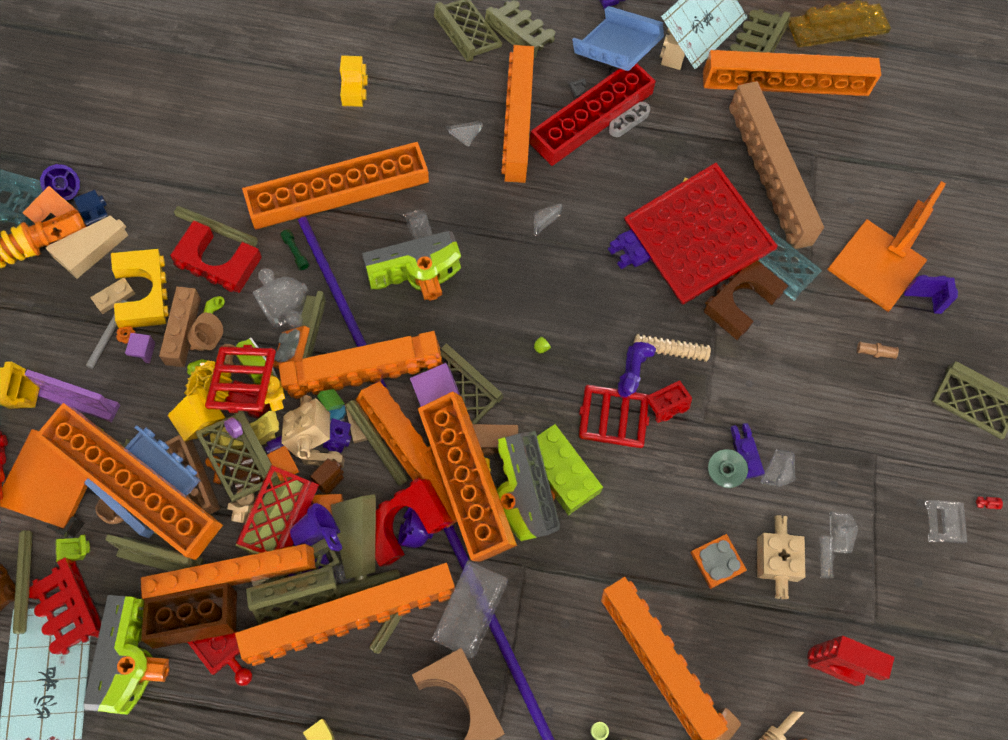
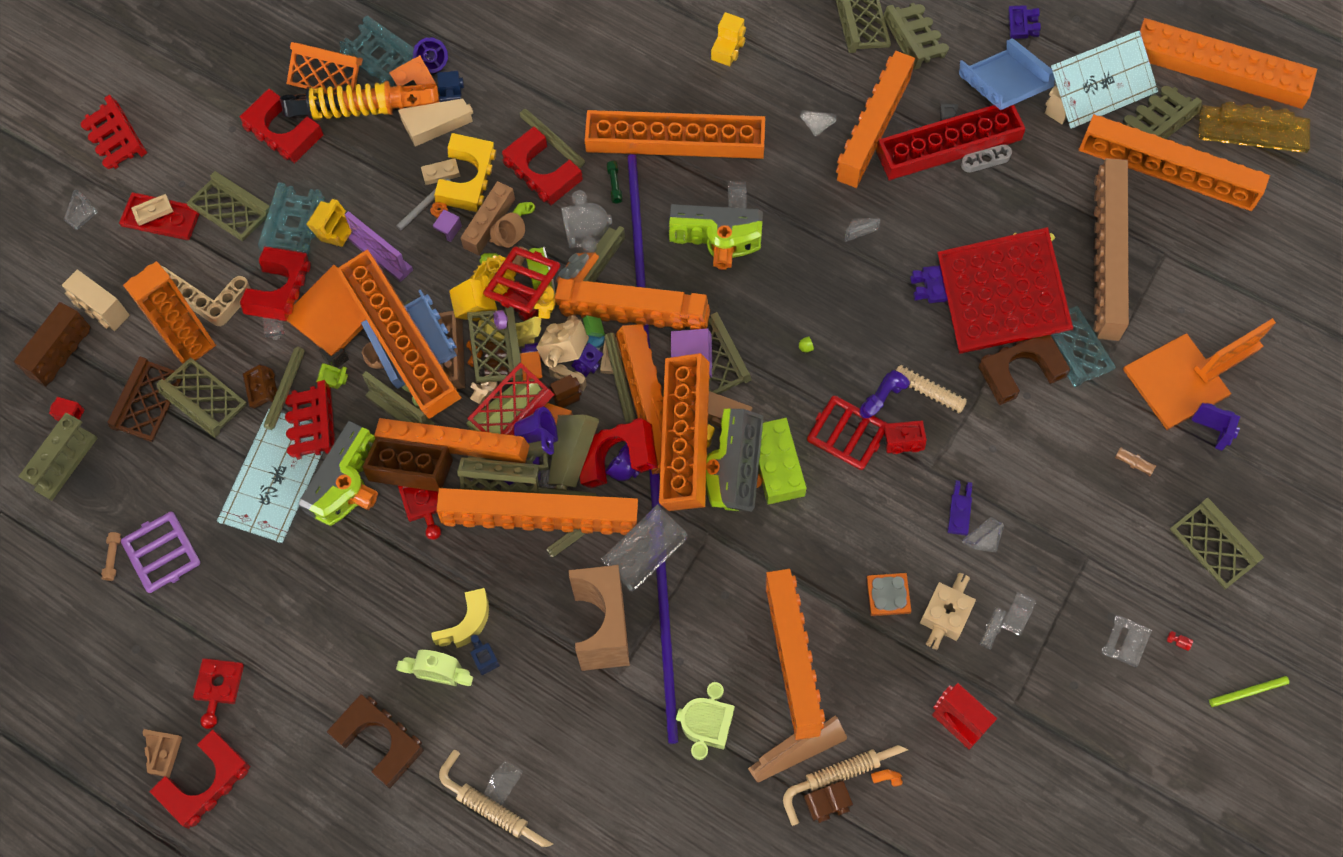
camera: 30 degrees right, 0 degrees up
(731, 460) = (933, 507): sand green dish -> none

